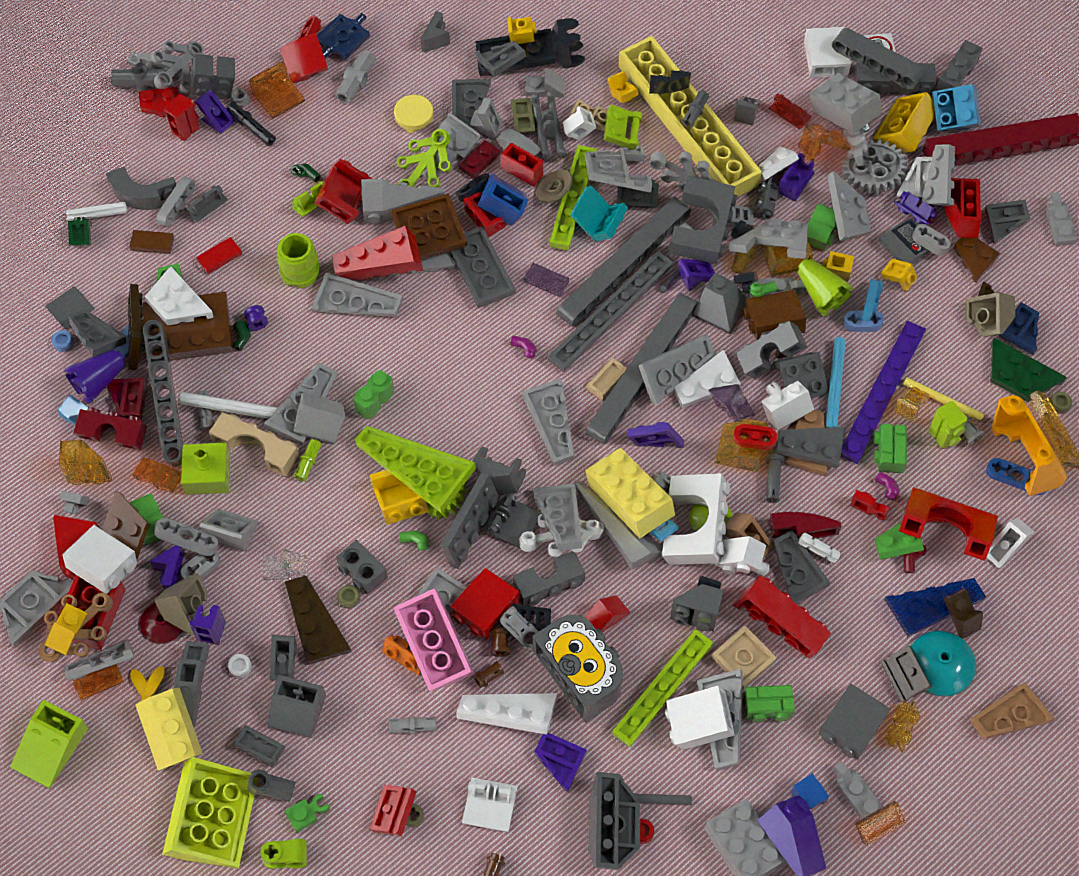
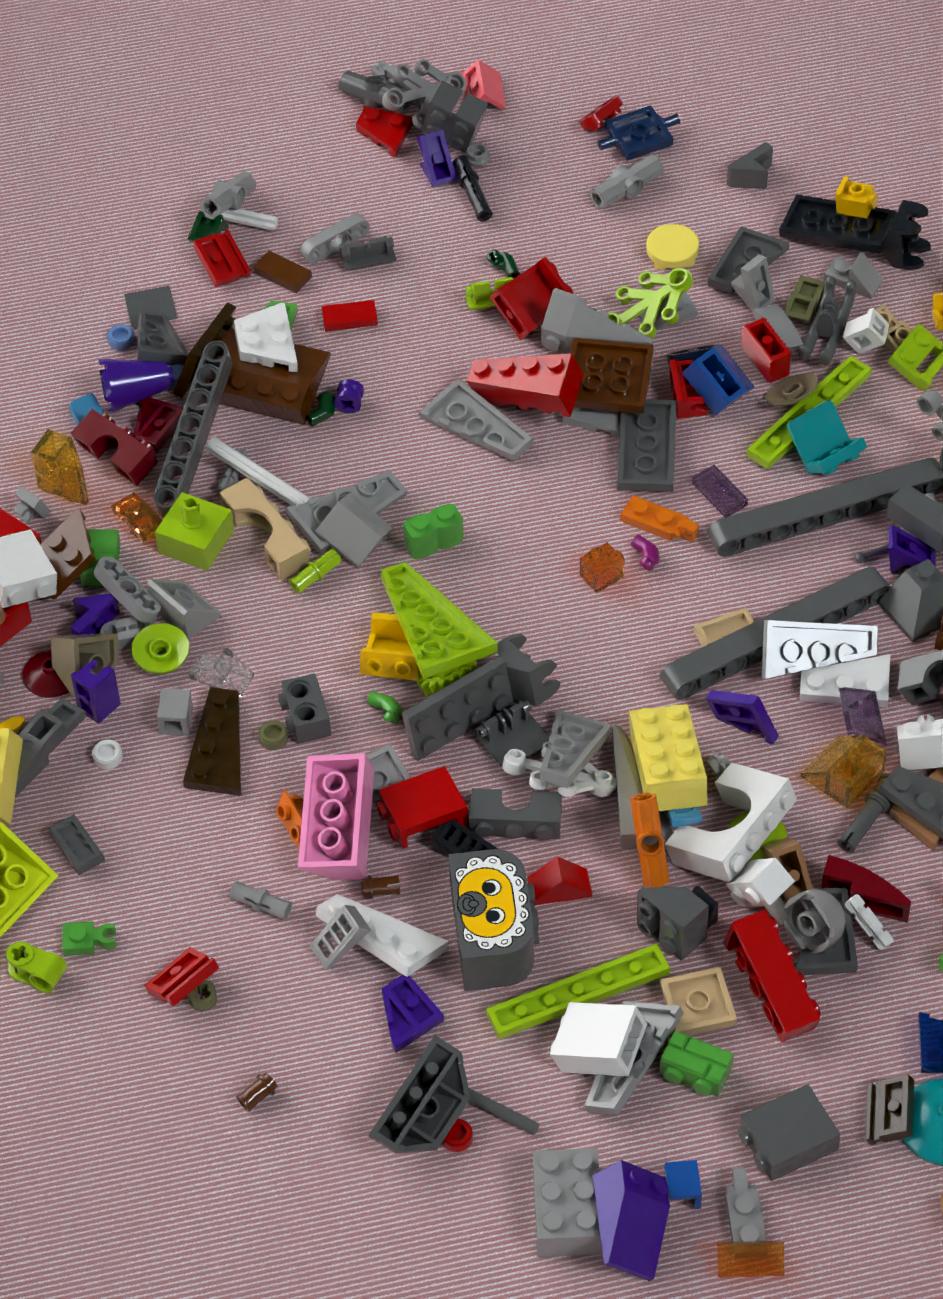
camera: 30 degrees right, 10 degrees down
(82, 200) = (228, 195): none -> light grey piece
(103, 250) = (221, 258): none -> red plate
(137, 195) = (297, 216): dark grey arch -> none
(182, 117) = (394, 148): red brick -> none
(214, 43) = (484, 84): none -> coral panel
(233, 559) = (156, 639): none -> lime dish
(271, 612) = (175, 712): none -> light grey brick
(274, 786) = (64, 890): dark grey piece -> none
(275, 90) = (522, 160): clear orange bracket -> none
(283, 655) = (157, 761): dark grey slope -> none
(296, 706) = (141, 819): dark grey slope -> none
(298, 260) = (432, 351): lime piece -> none
(303, 58) = (576, 138): red slope -> none
(462, 136) = (710, 291): light grey plate -> none
(479, 159) = (720, 327): dark red plate -> none
(489, 804) = (296, 1023): white hinge -> none
(493, 713) = (352, 937): none -> light grey slope
(500, 57) = (813, 221): dark grey wing -> none
(500, 642) = (415, 857): reddish brown bush -> none
(502, 370) = (602, 567): none -> clear orange brick
(517, 626) = (442, 842): light grey piece -> none
(518, 318) = (658, 520): none -> orange hinge
(551, 419) = (629, 640): light grey wing -> none
(610, 311) = (777, 555): dark grey plate -> none
(613, 170) = (874, 394): light grey wing -> none
(638, 198) = (893, 438): pearl dark grey bracket -> none
(654, 559) = (647, 823): none -> orange piece
(754, 436) = (858, 757): red plate -> none
(791, 565) = (814, 920): none -> light grey cylinder
(901, 735) = (857, 1163): clear yellow hinge -> none

